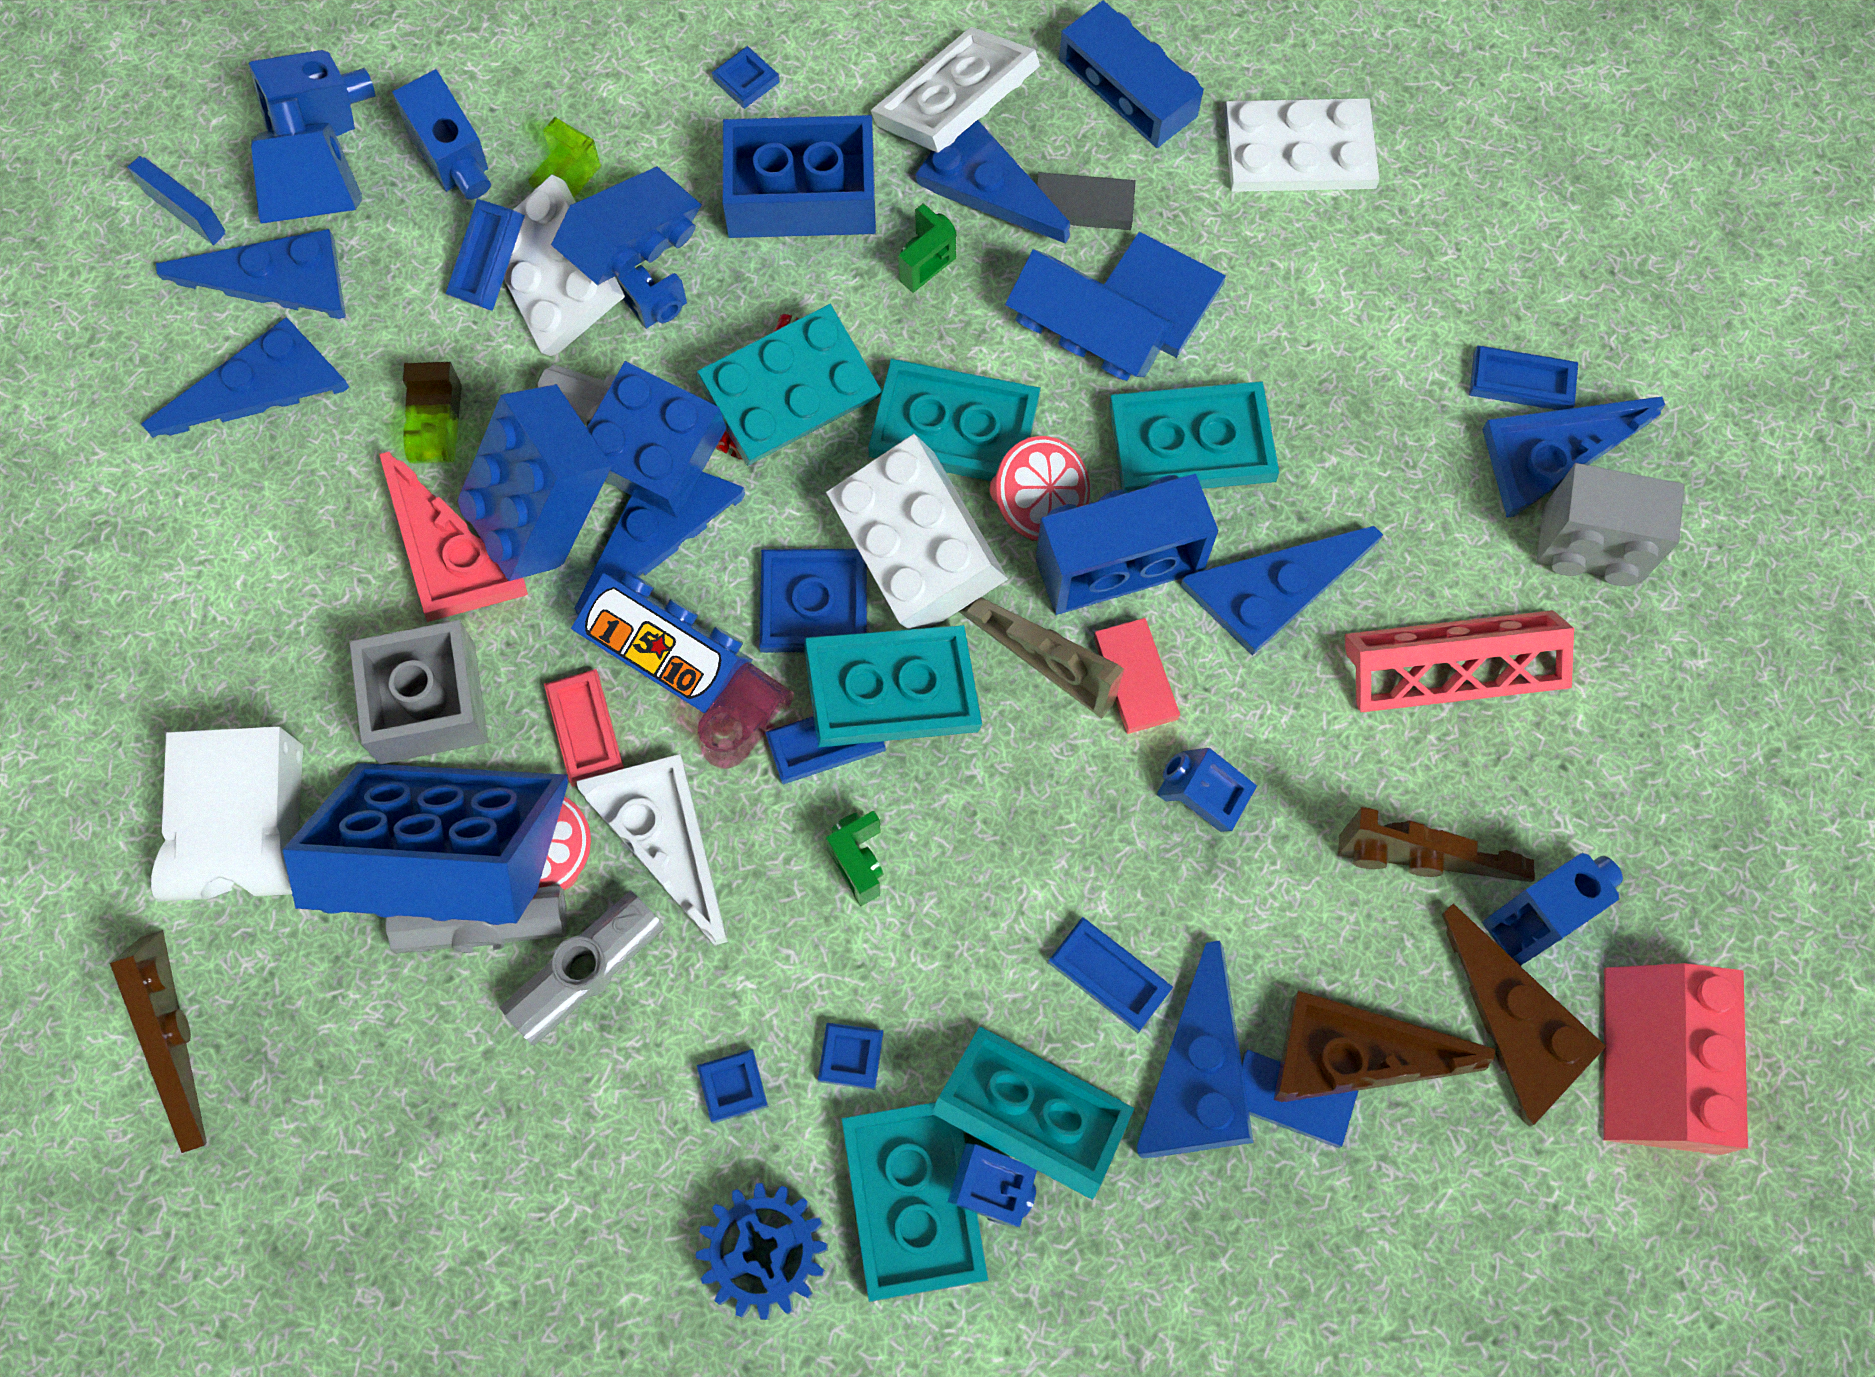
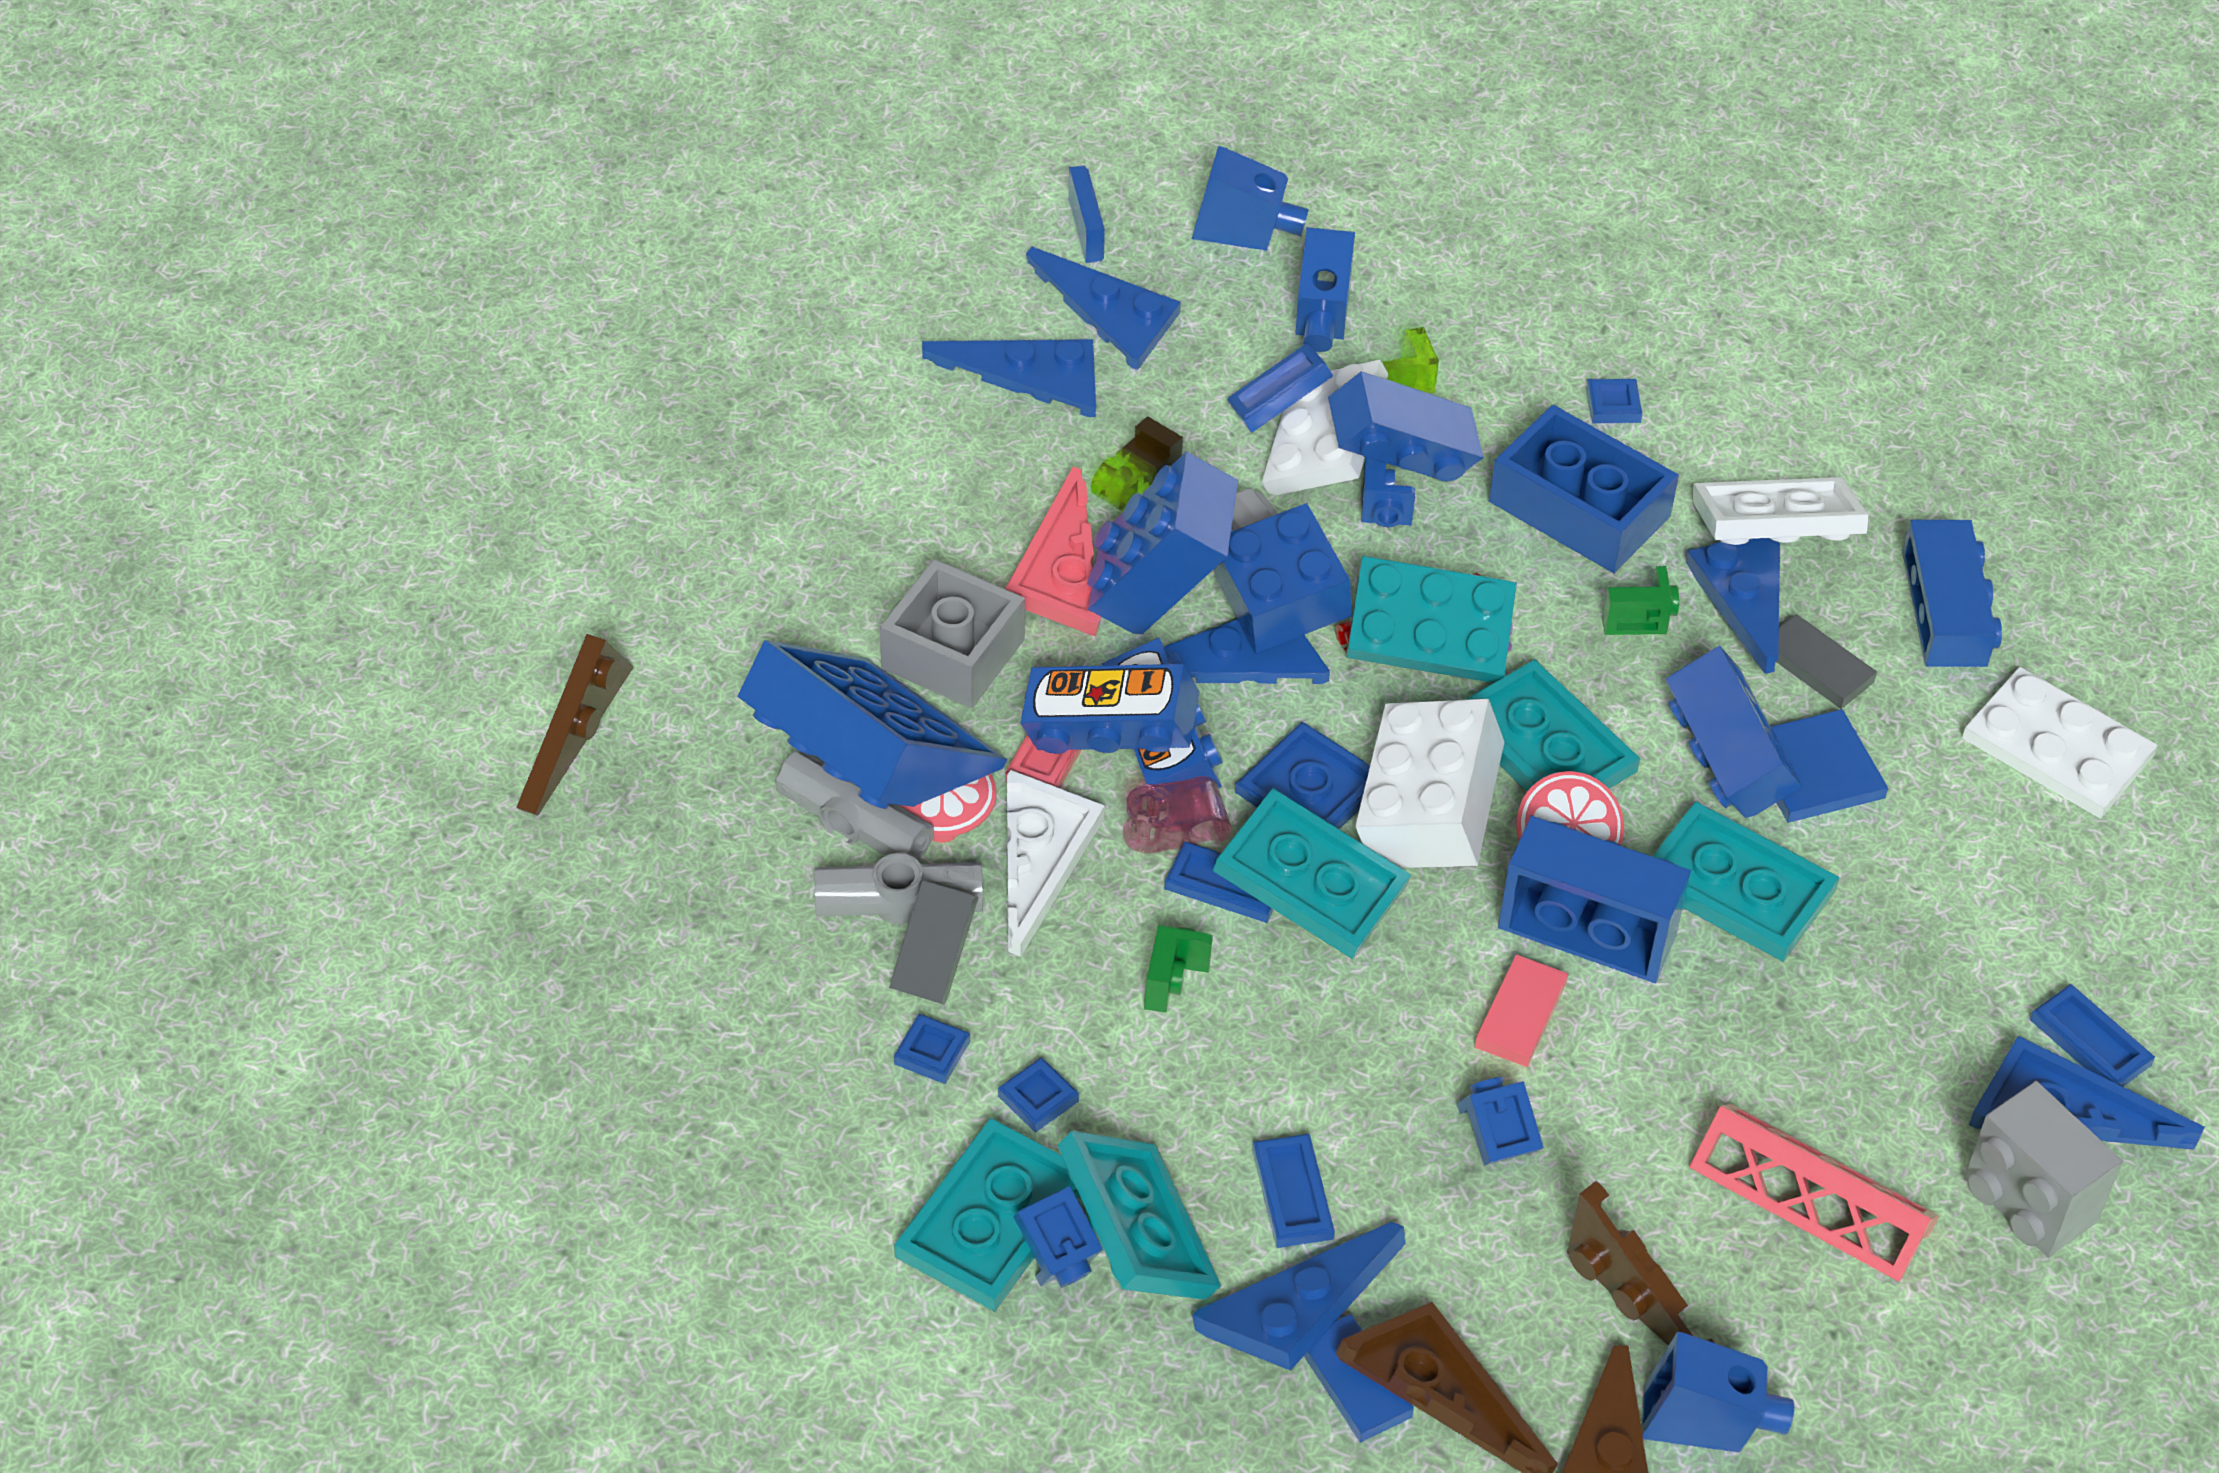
camera: 40 degrees right, 20 degrees down
(227, 812) = (747, 599): white piece -> none
(300, 168) = (1195, 244): blue torso -> none
(621, 672) = (1110, 708): none -> brick
(657, 996) = (933, 942): none -> dark grey tile
(736, 1263) = (866, 1172): blue gear -> none
(1071, 667) = (1463, 943): dark tan wing -> none
(1268, 591) = (1695, 1031): blue wing -> none

